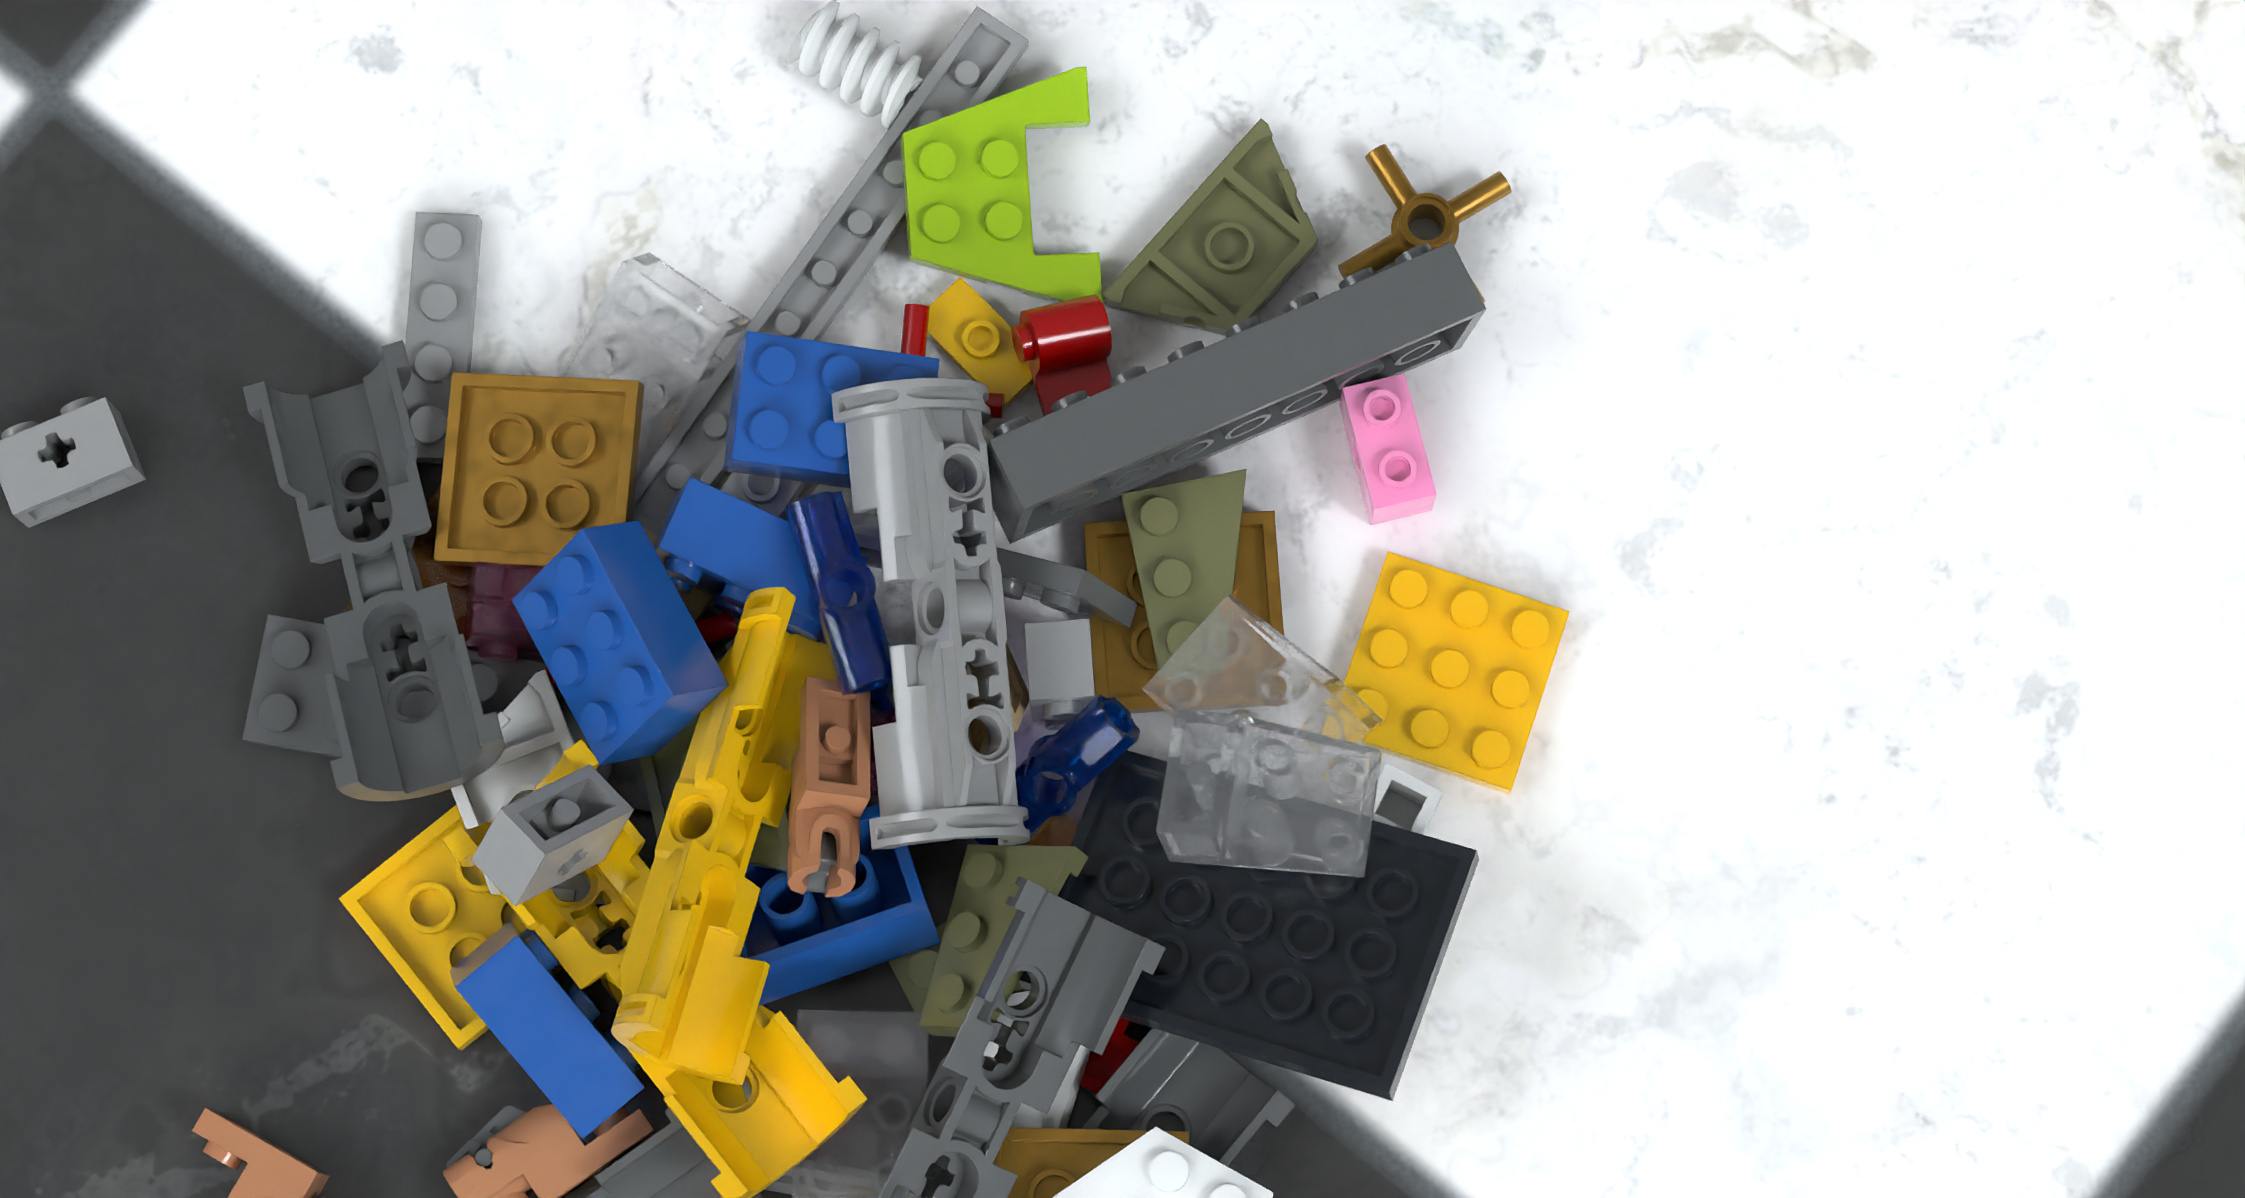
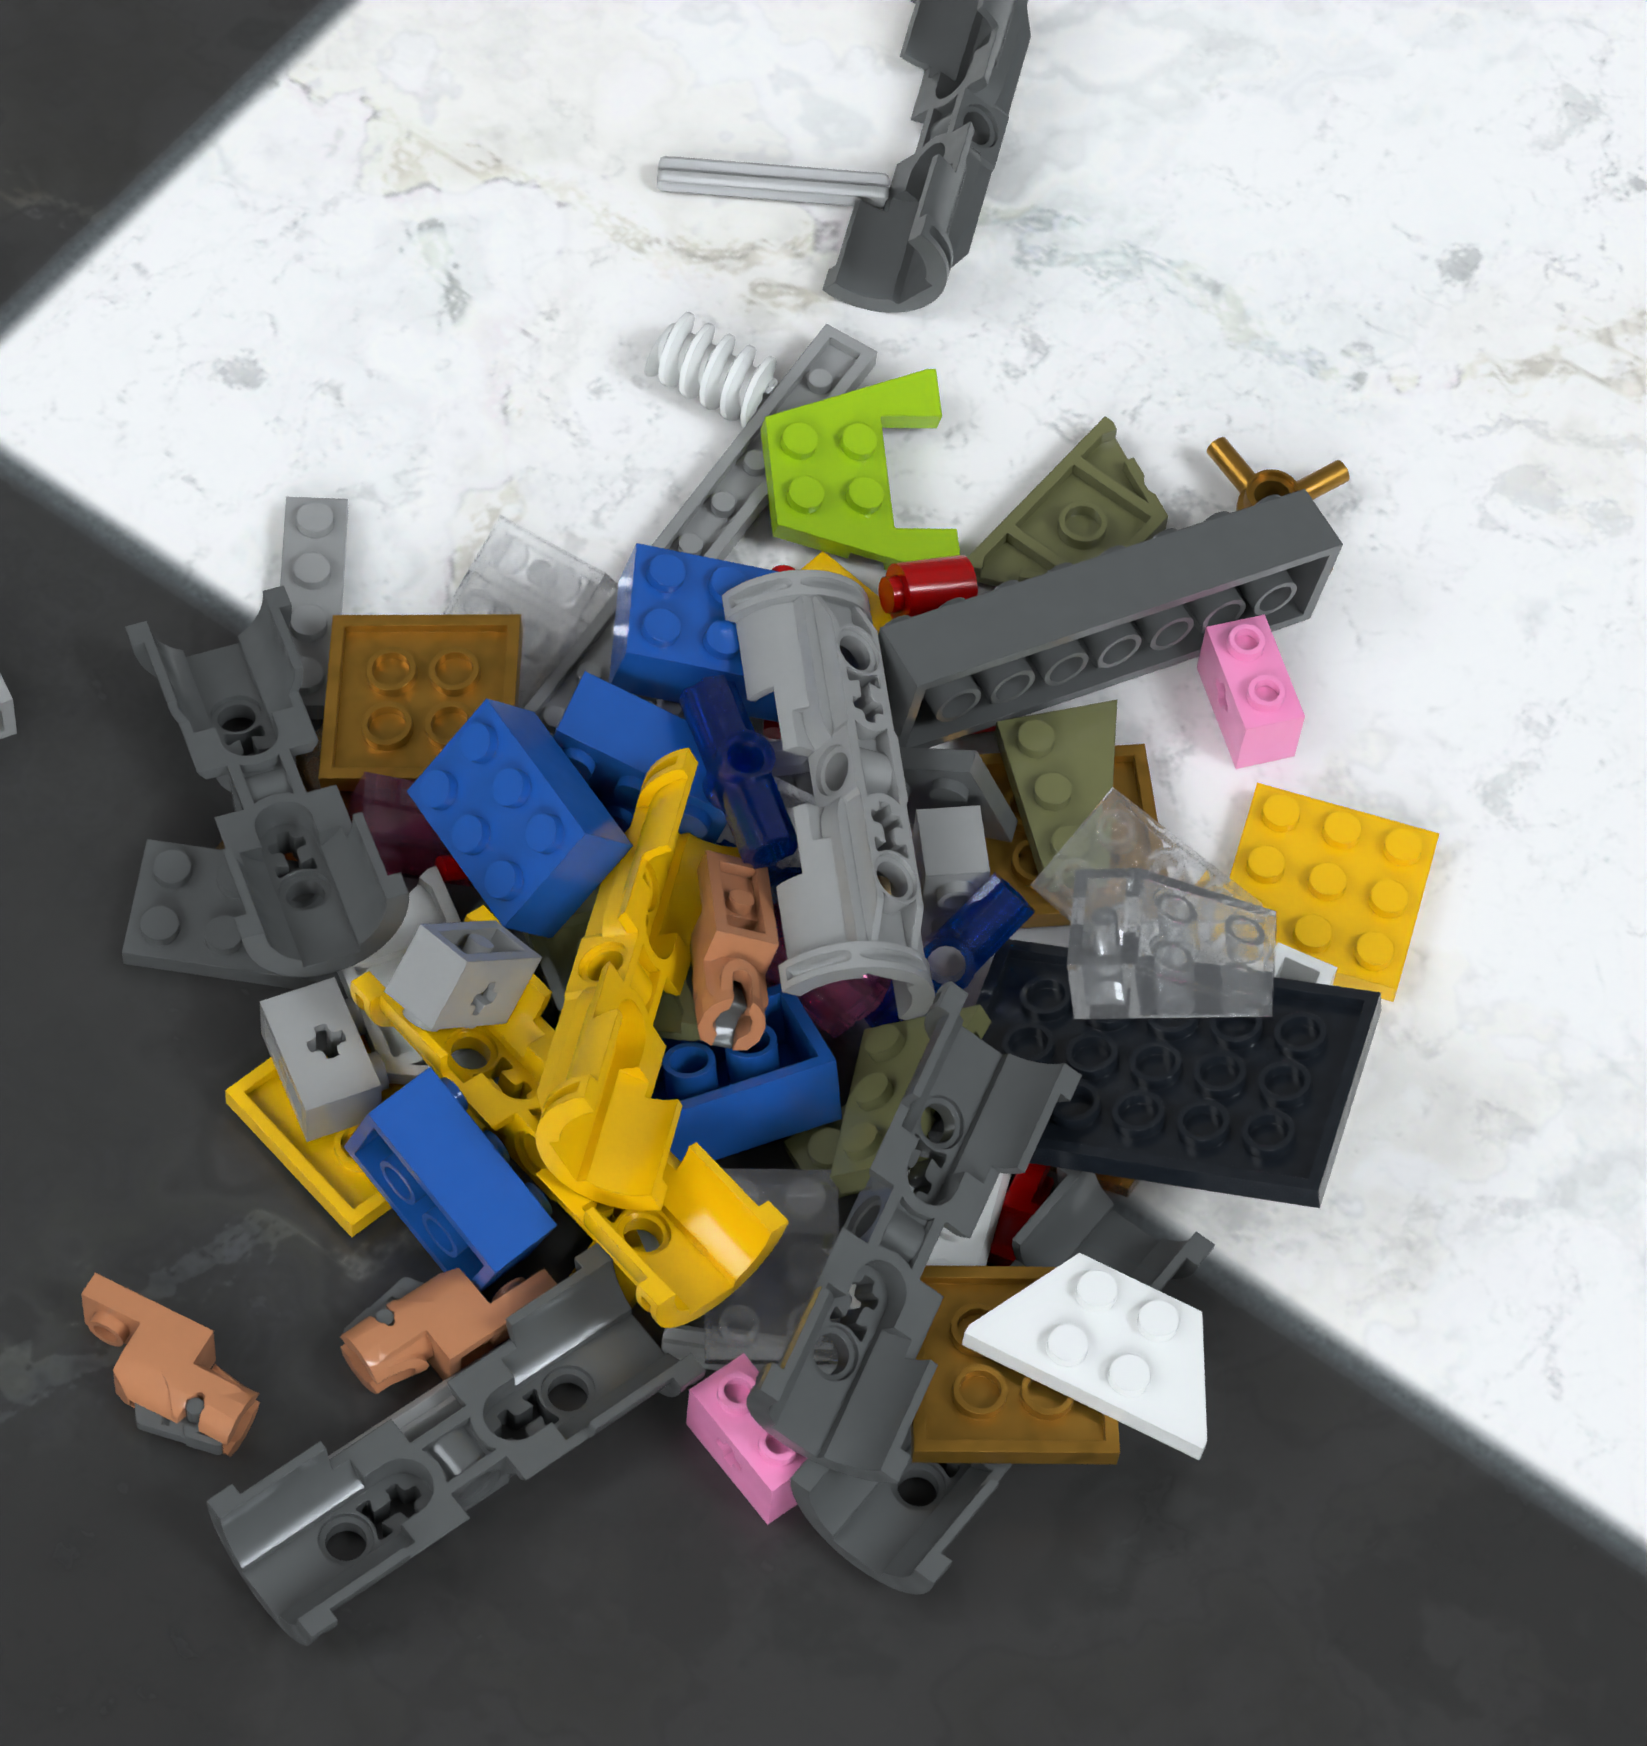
camera: 10 degrees left, 20 degrees down
(425, 916) = (299, 1035): none -> light grey brick

